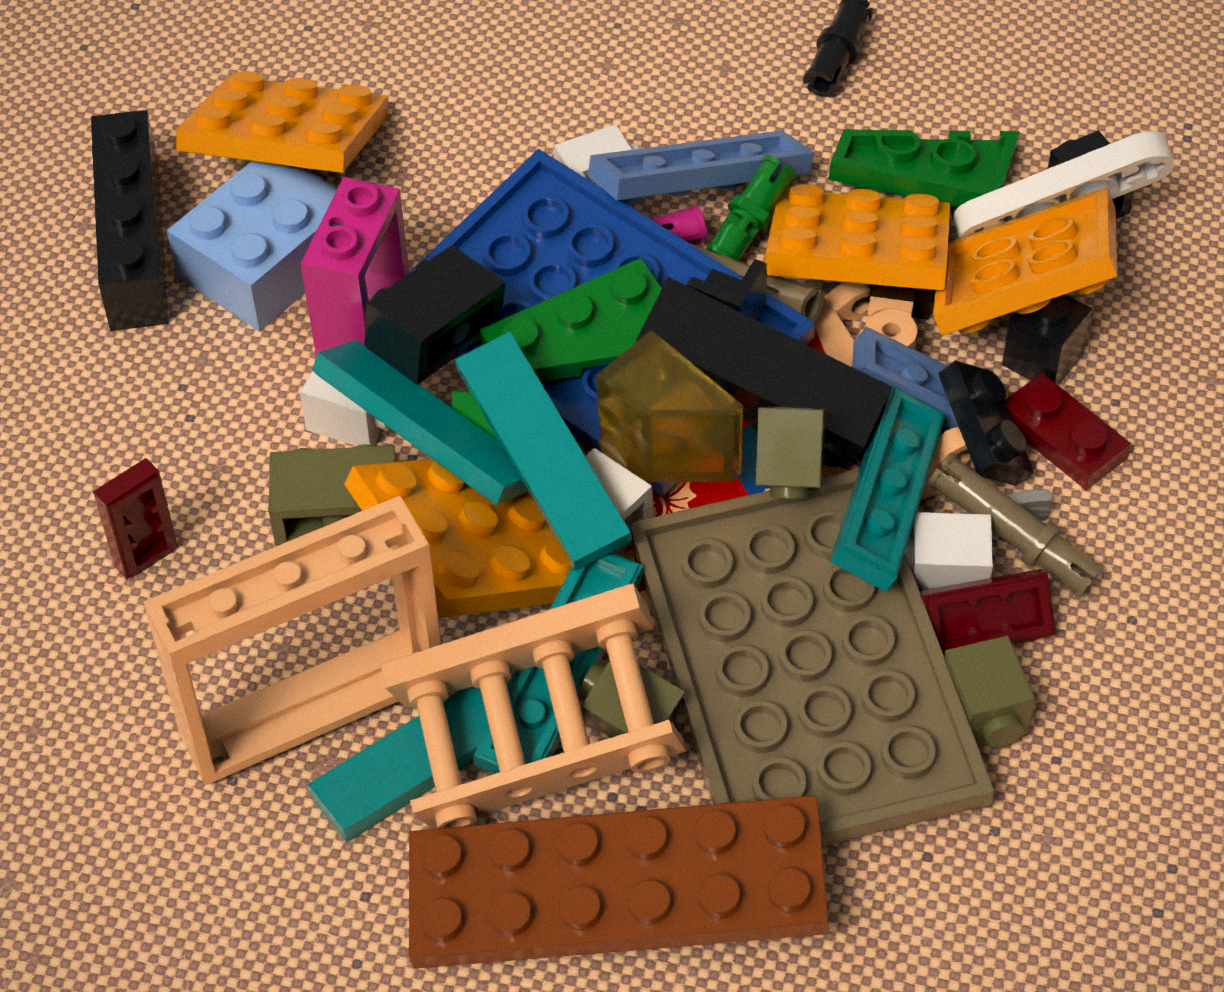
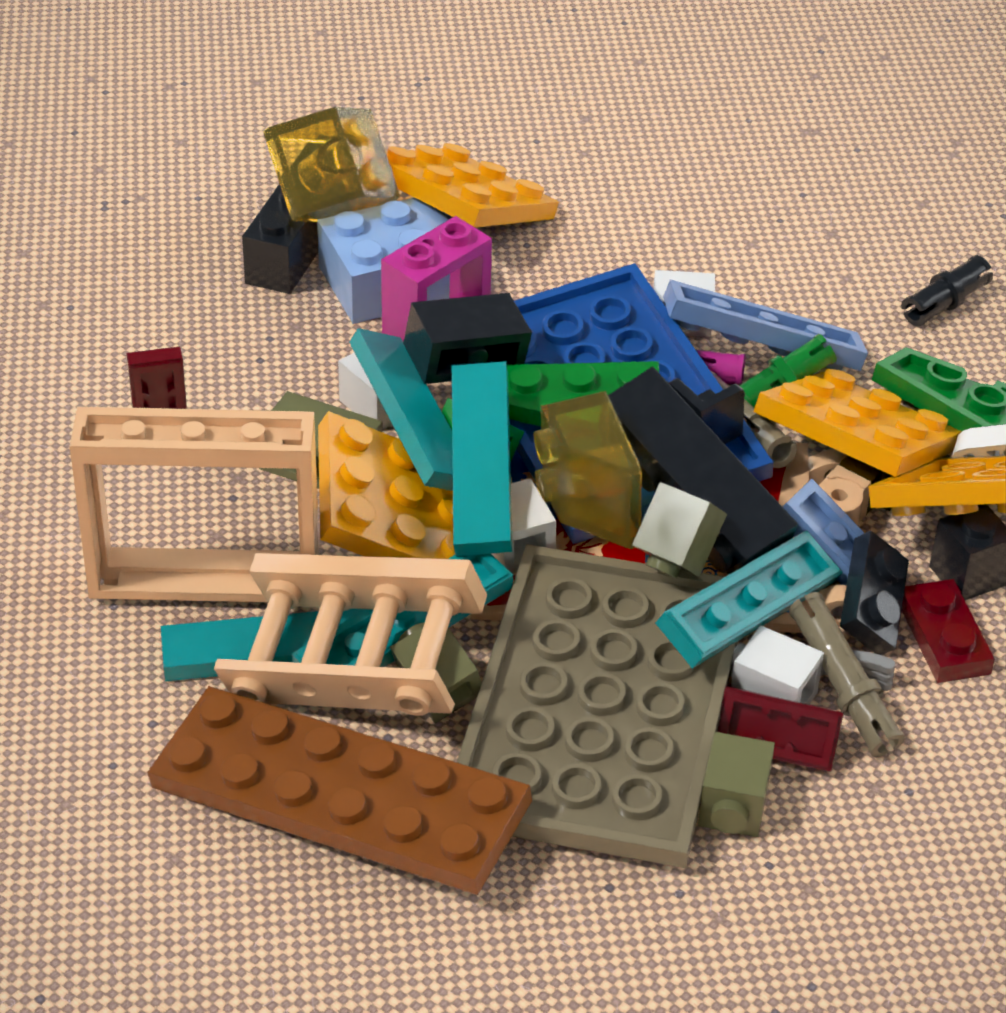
camera: 25 degrees right, 10 degrees down
(153, 160) = (331, 163): none -> clear yellow slope

